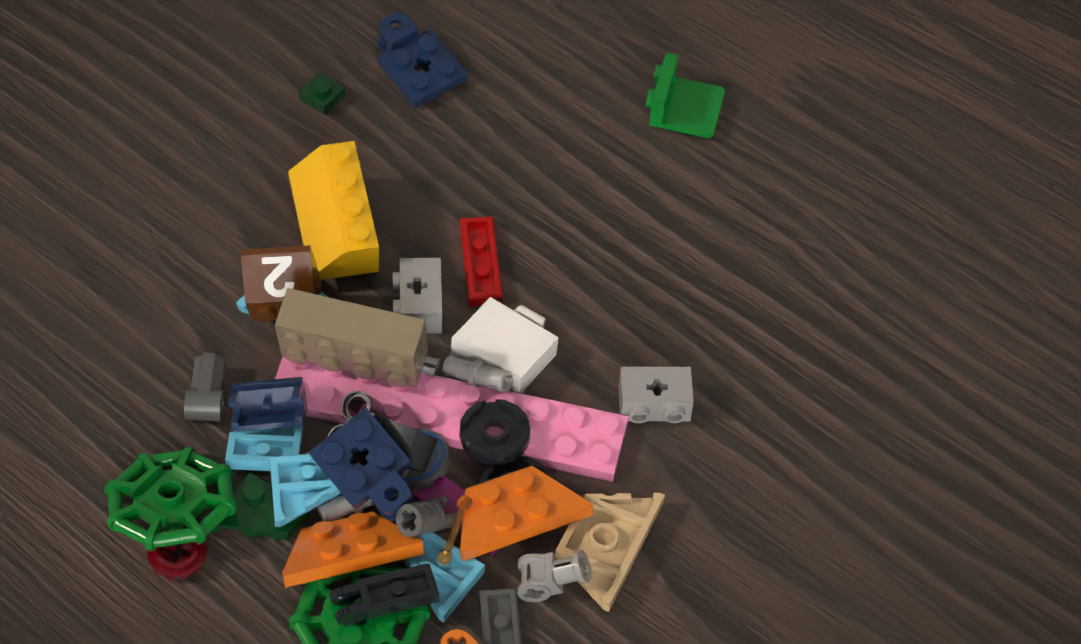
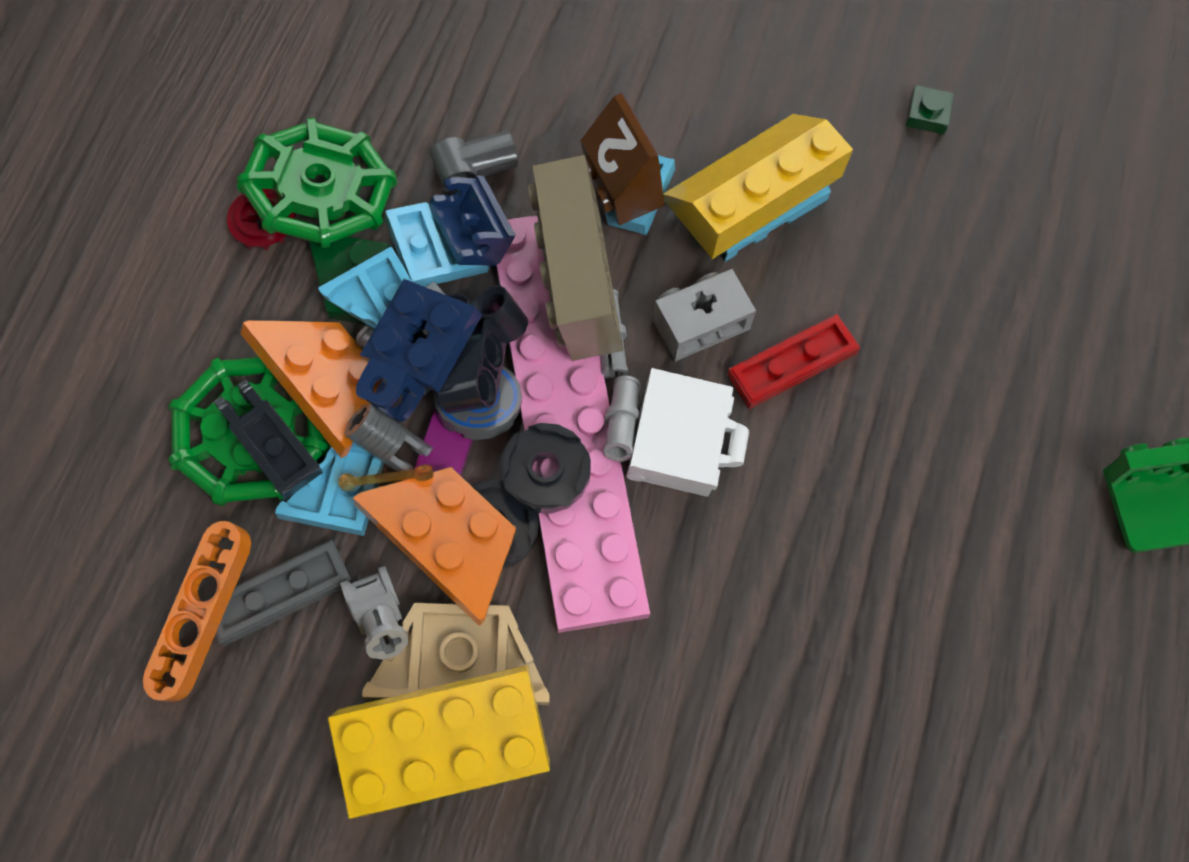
camera: 65 degrees right, 15 degrees up
(406, 49) = (1040, 166): dark blue plate -> none
(656, 394) = (696, 607): light grey brick -> none
(665, 560) = (439, 741): none -> yellow brick

